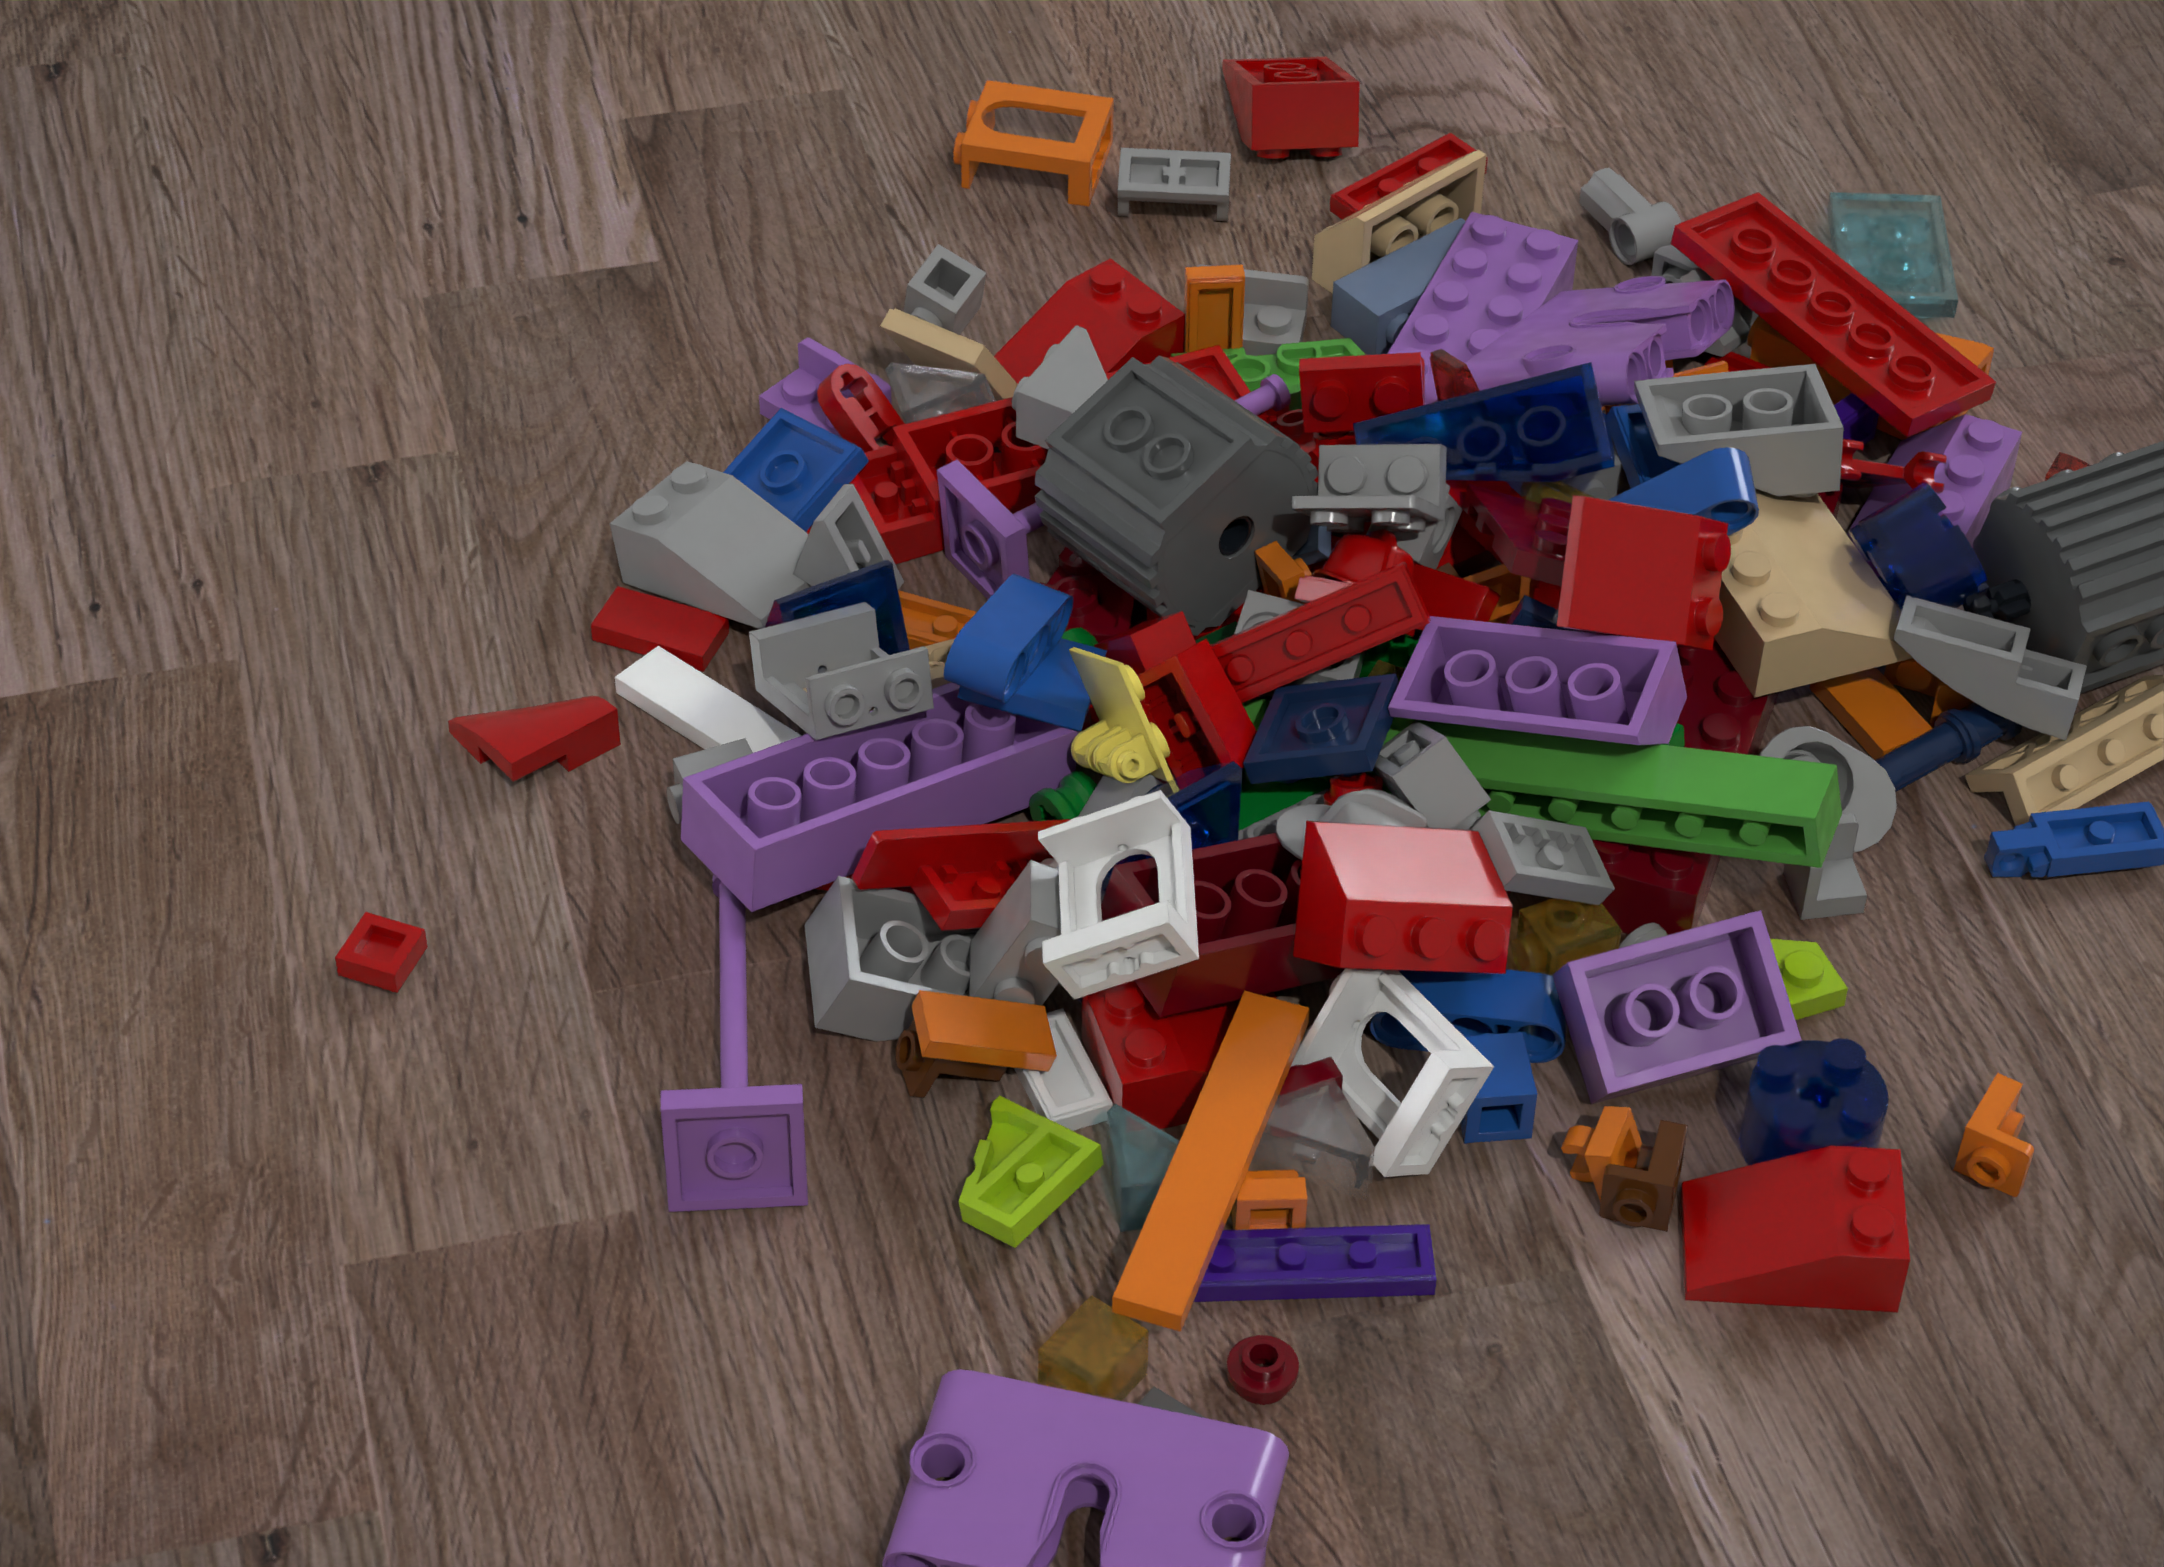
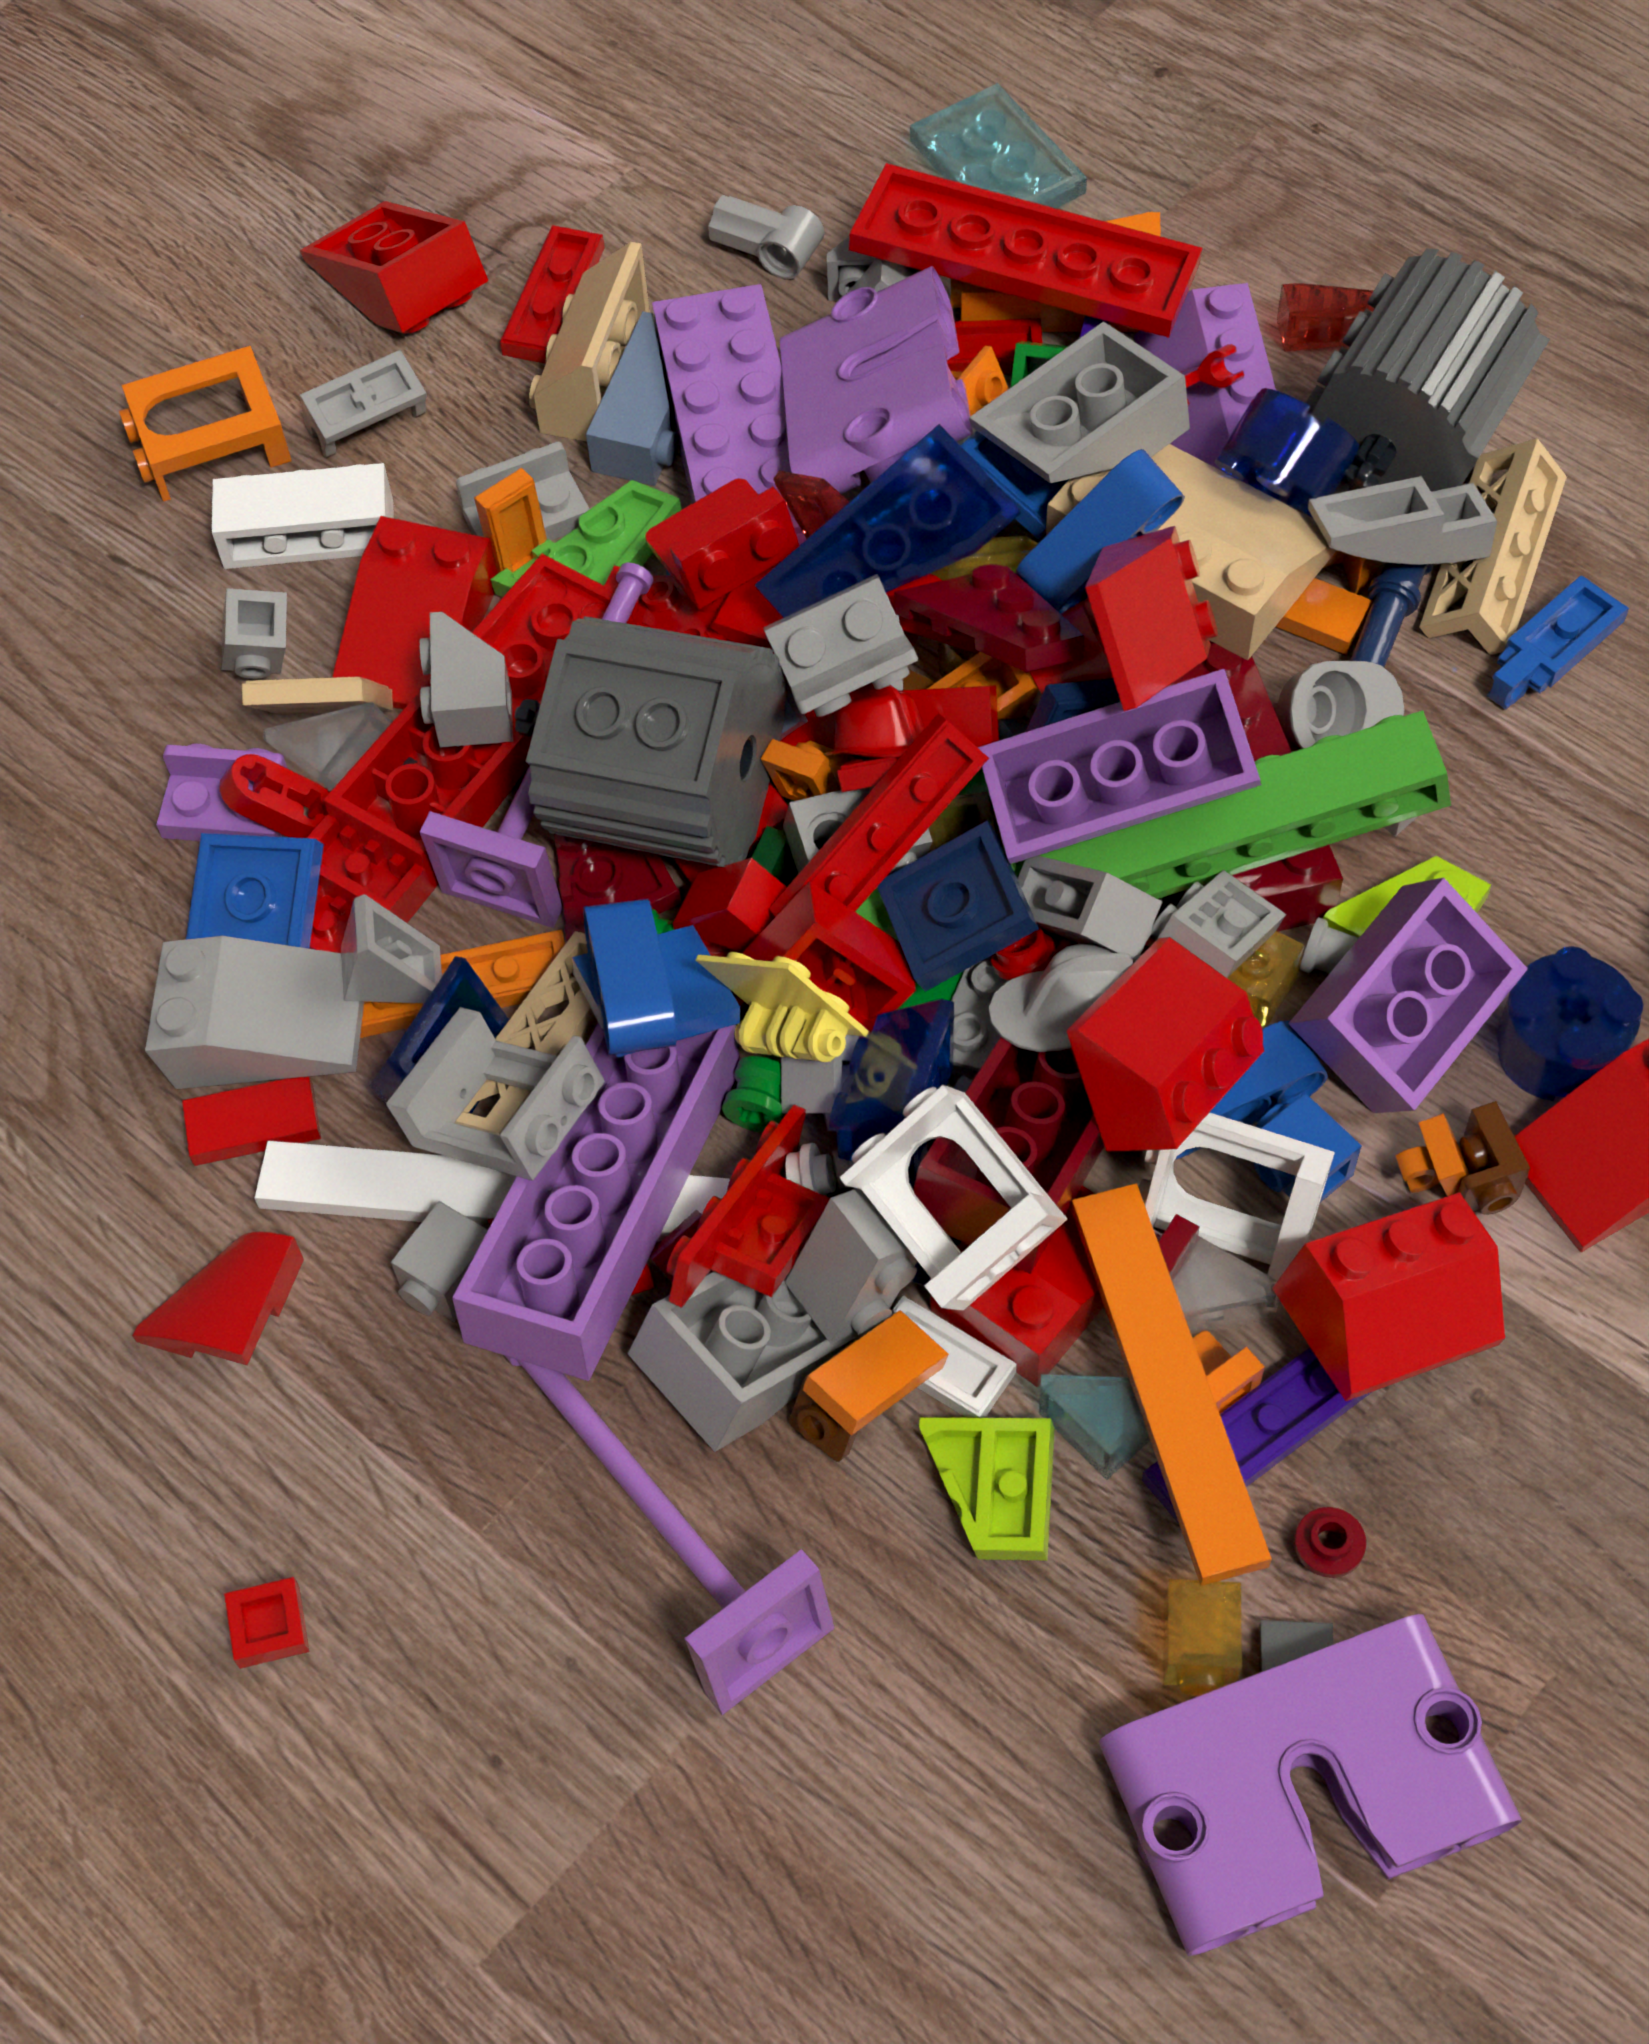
camera: 30 degrees left, 15 degrees up
(1051, 234) = (298, 514): none -> white brick
(1470, 1211) = (1397, 1295): none -> red slope

